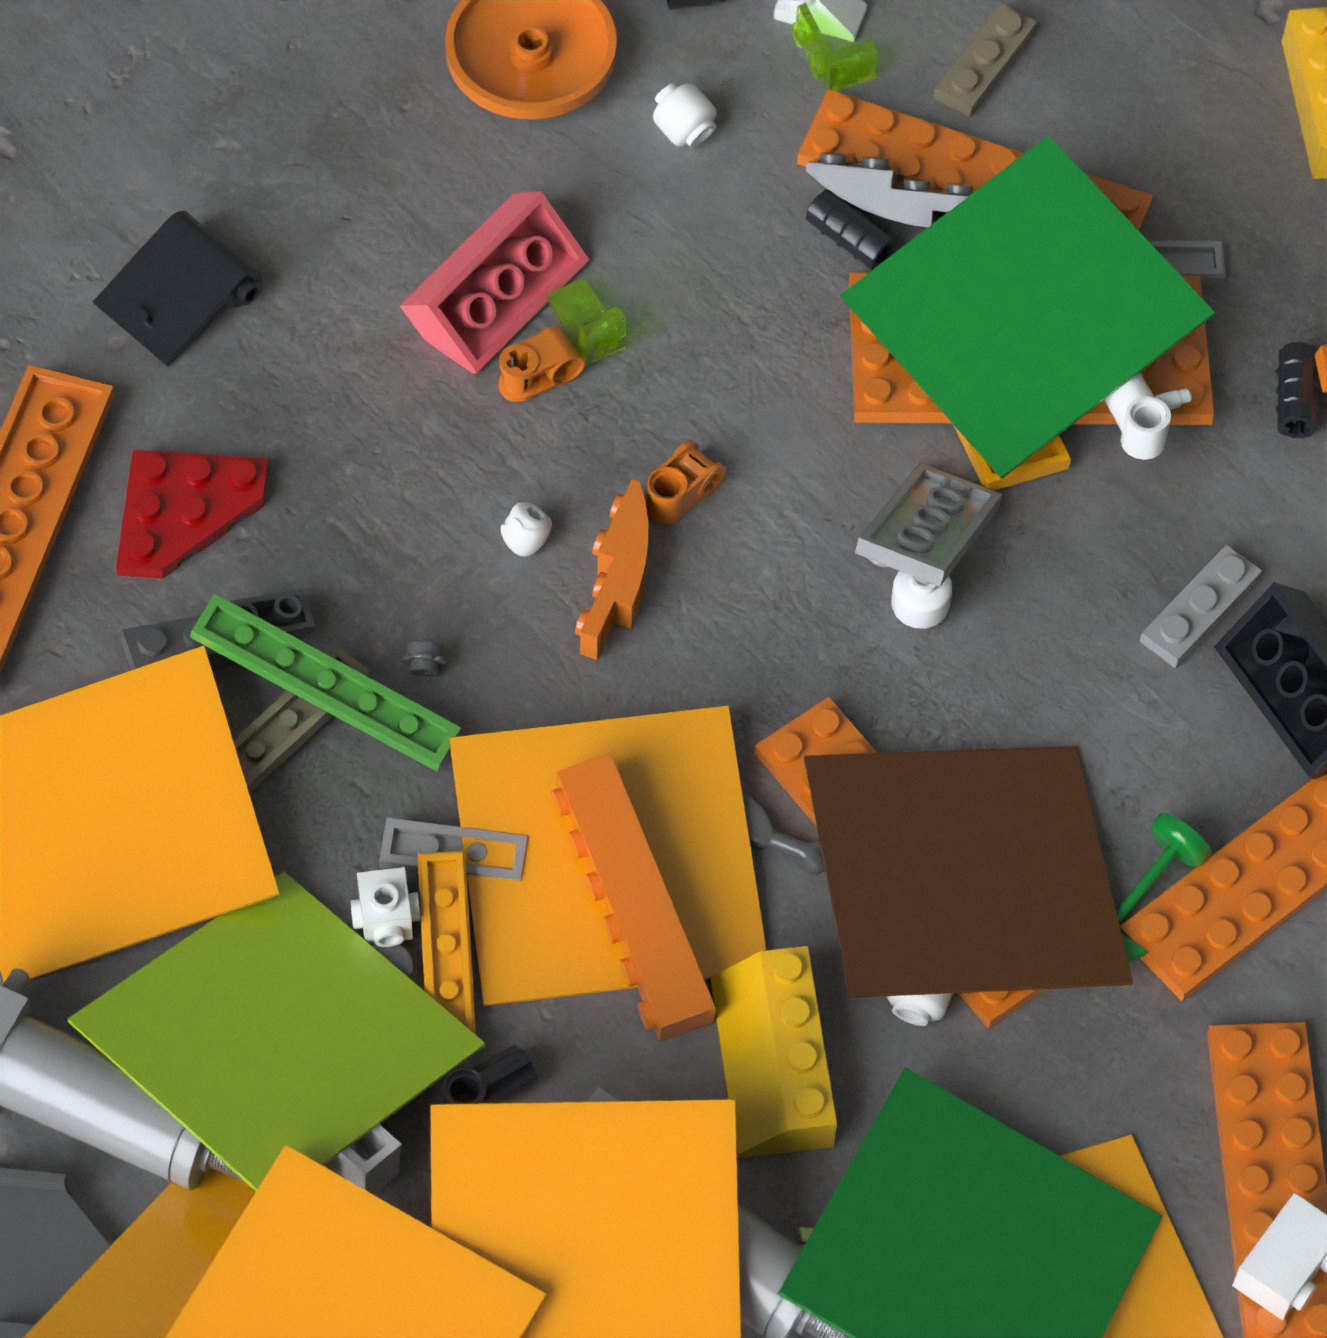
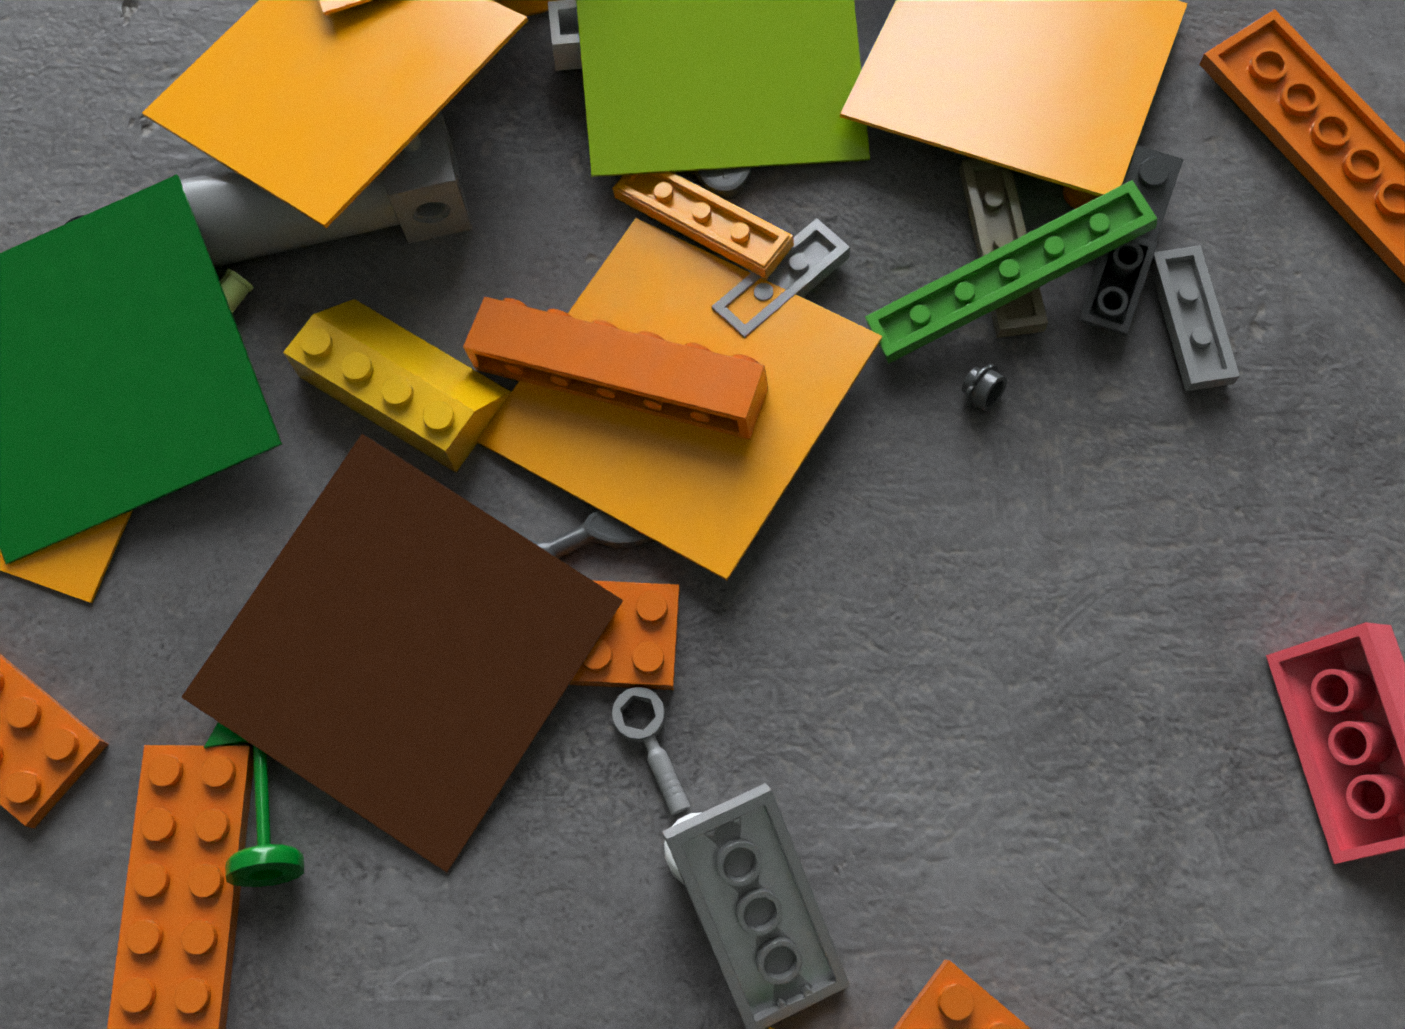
camera: 135 degrees right, 10 degrees up
(183, 506) = (1289, 313): red plate -> none
(247, 556) = (1193, 318): none -> light grey plate
(385, 907) = (770, 187): white brick -> none
(493, 1079) = (562, 162): black piece -> none
(526, 529) = (1052, 559): white piece -> none
(542, 360) = (1233, 719): orange piece -> none
(586, 322) = (1255, 795): clear neon green bracket -> none
(621, 571) = (956, 624): orange slope -> none
(685, 477) = (1000, 740): orange piece -> none
(875, 692) = (657, 757): none -> light grey piece

